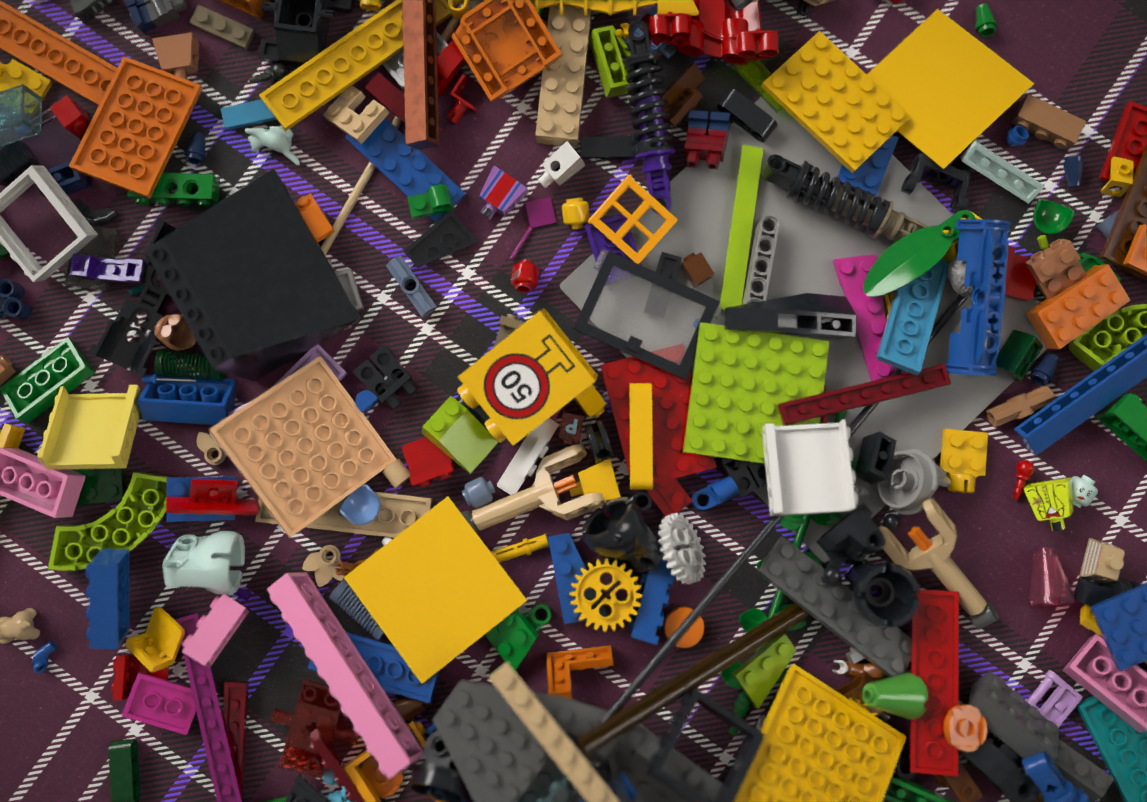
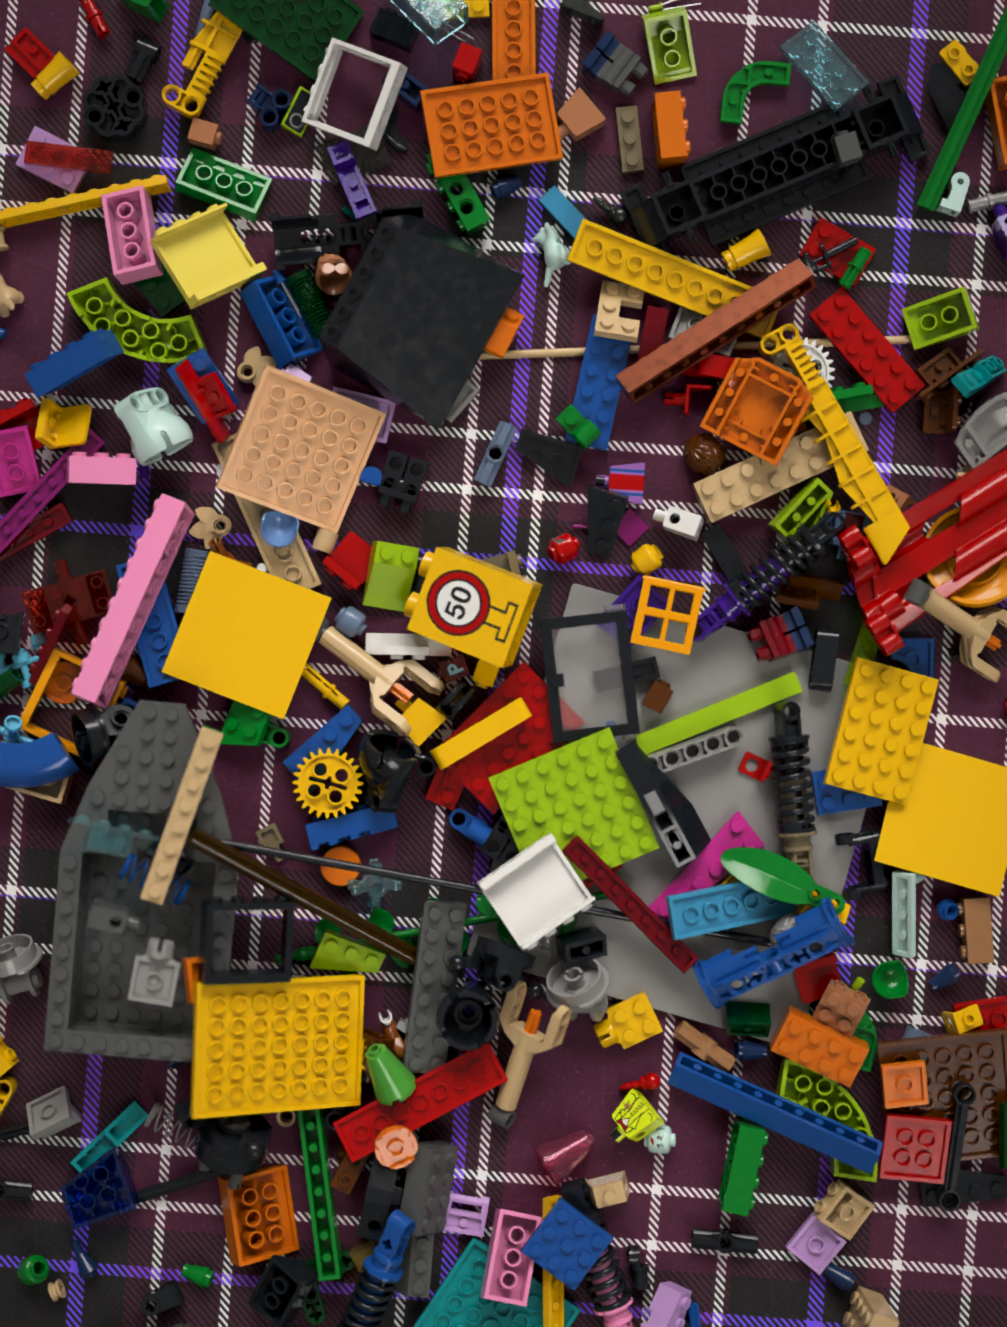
camera: 55 degrees right, 5 degrees up
(31, 291) = (293, 119): none -> slope
(516, 115) = (704, 454): none -> reddish brown hair
(520, 226) = (604, 518): none -> black wing
(562, 662) = (249, 779): orange plate -> none
(623, 674) = (271, 837): none -> dark tan plate
(687, 562) = (394, 835): white gear -> none
(719, 607) = (376, 892): none -> clear light blue pin
(789, 41) = (917, 655): none -> blue tile
(810, 217) = (763, 770): none -> red bracket

